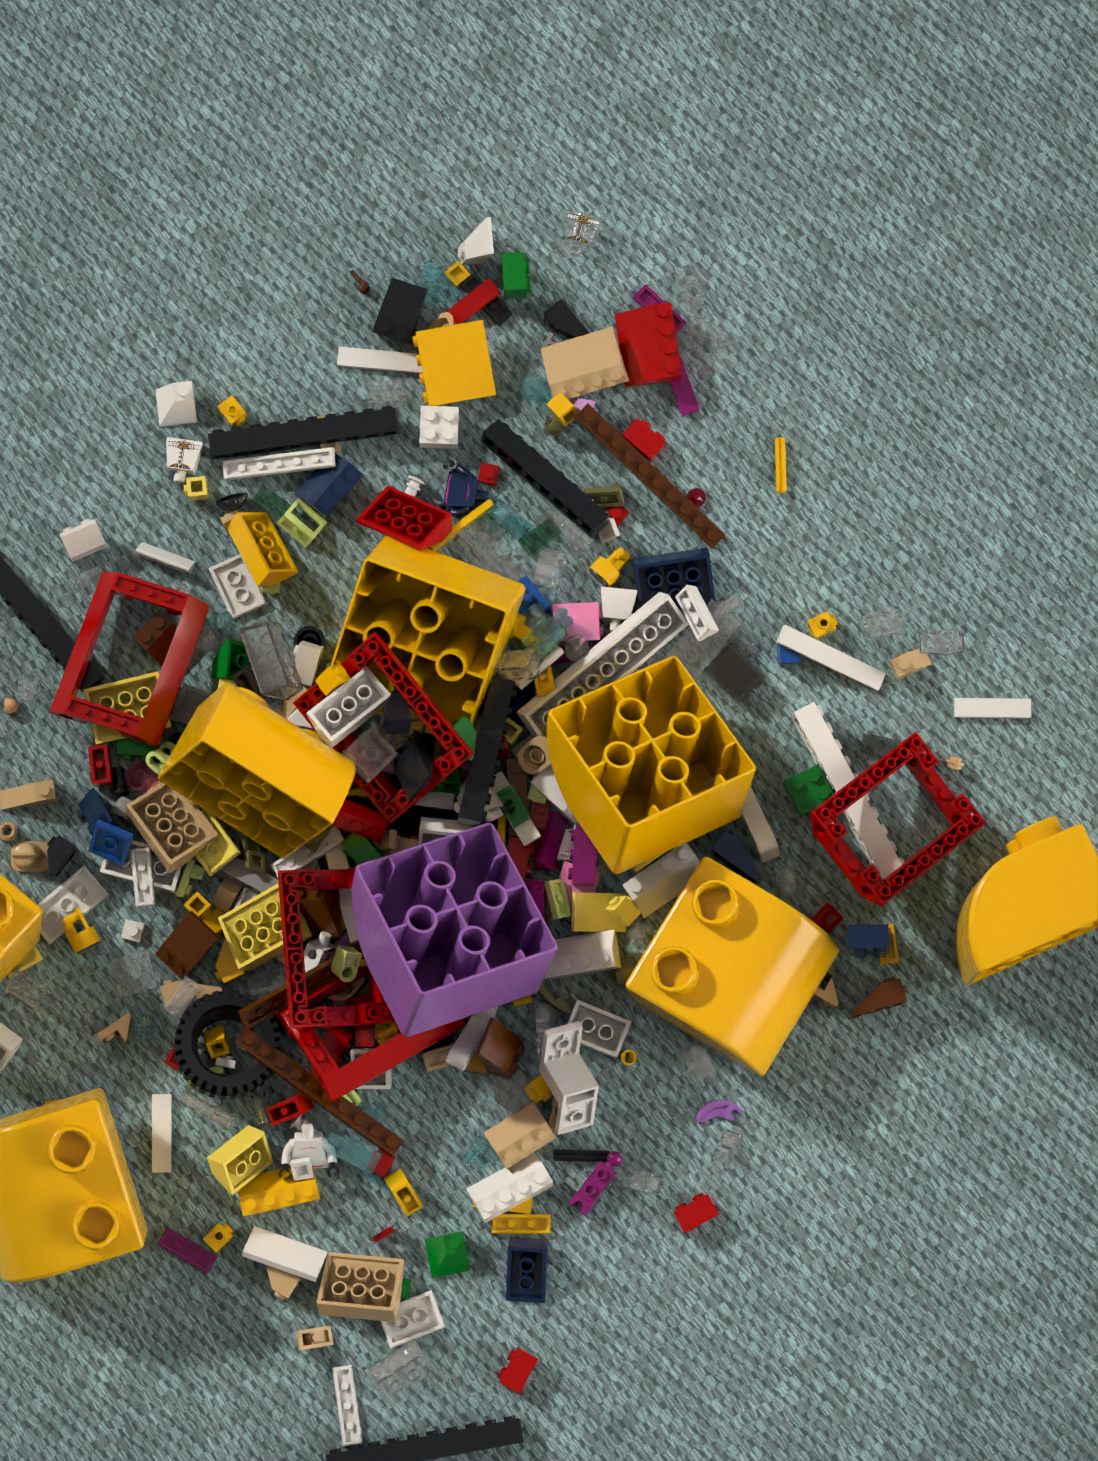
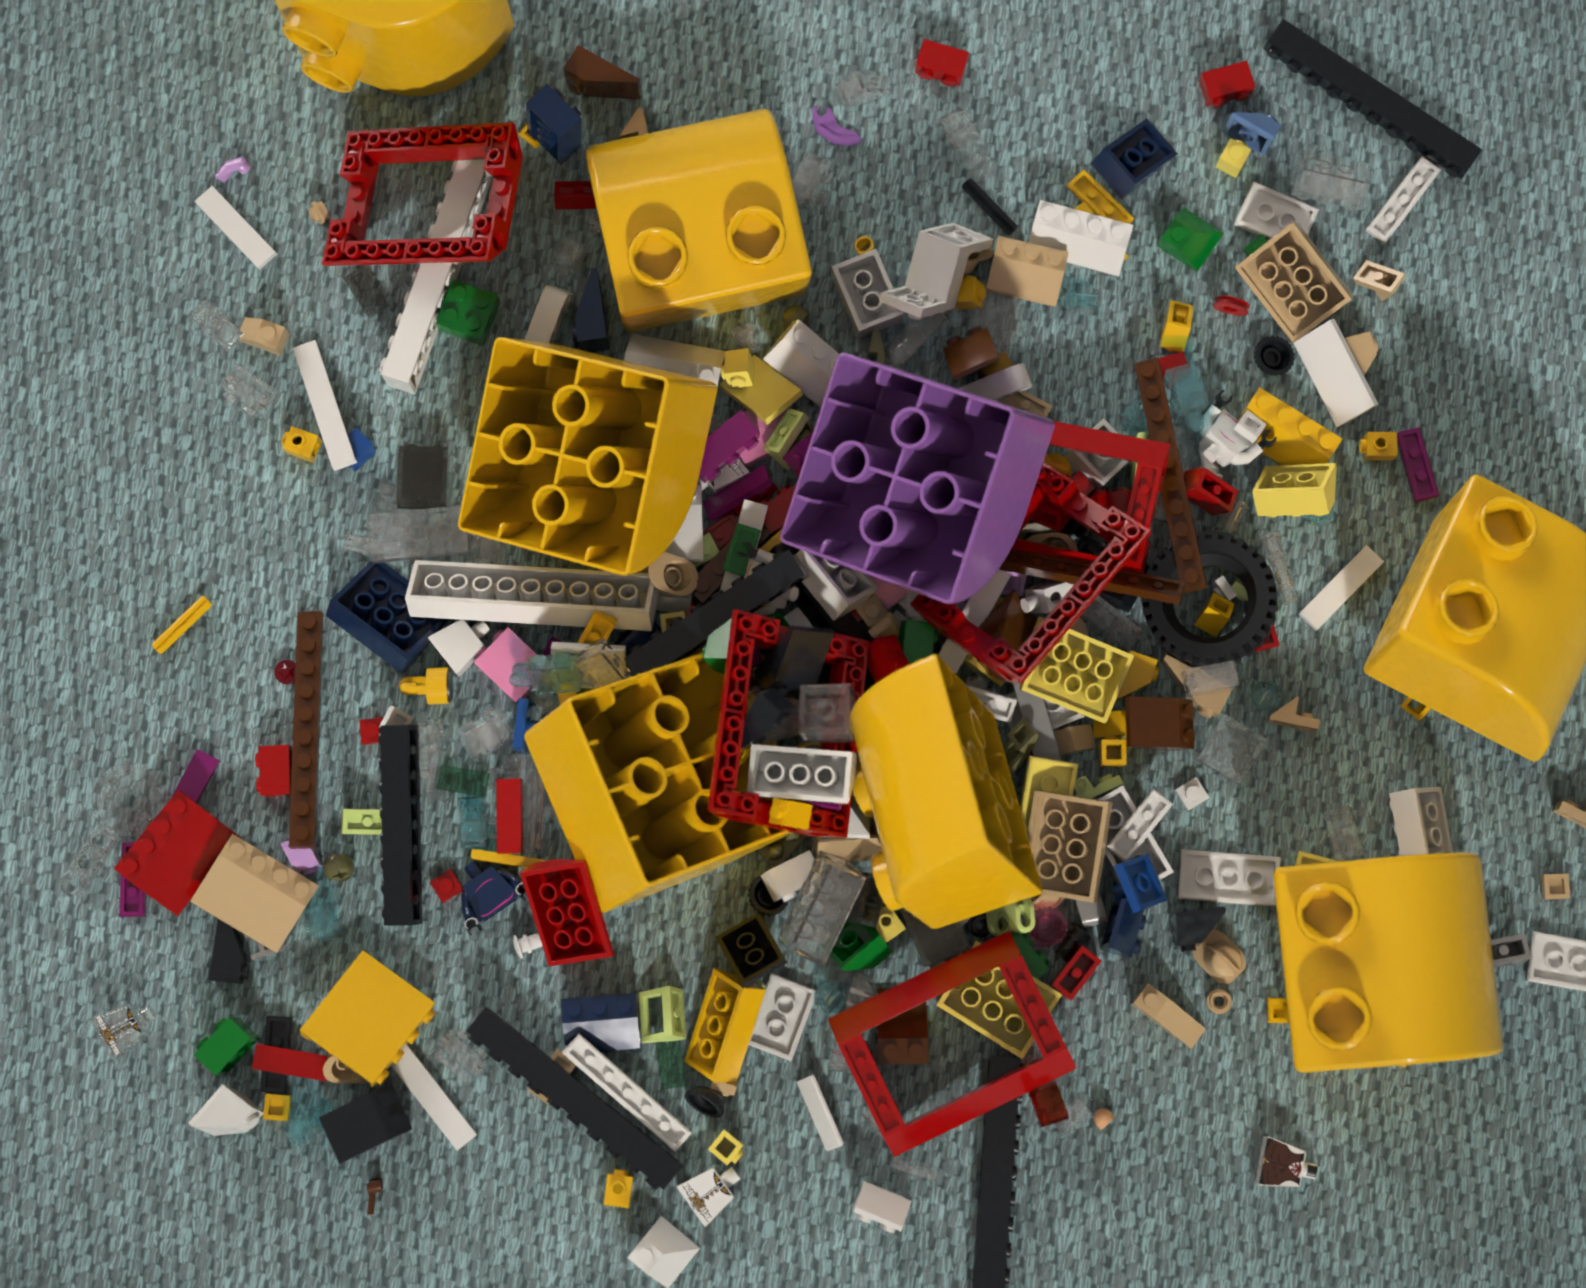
camera: 135 degrees left, 0 degrees up
(45, 680) = (1048, 1104): none -> clear red panel
(83, 940) = (1247, 828): yellow piece -> none
(286, 600) = (751, 950): none -> black slope
(330, 1230) = (1274, 355): none -> black hat
(348, 959) = (1034, 555): yellowish green piece -> none
(439, 427) = (445, 974): white brick -> none
(469, 1328) = (1233, 157): none -> light yellow brick
(472, 1357) = (1253, 129): none -> medium blue slope
(491, 540) = (509, 815): none -> red tile
(562, 409) = (317, 868): yellow brick -> none
(569, 459) = (361, 821): none -> yellowish green hinge
(576, 647) = (536, 637): clear head -> none
(596, 1183) = (1000, 168): magenta plate -> none
(606, 496) = (363, 750): olive tile -> none
(696, 612) = (397, 560): white slope -> none
(1032, 740) = (232, 166): none -> lavender arm

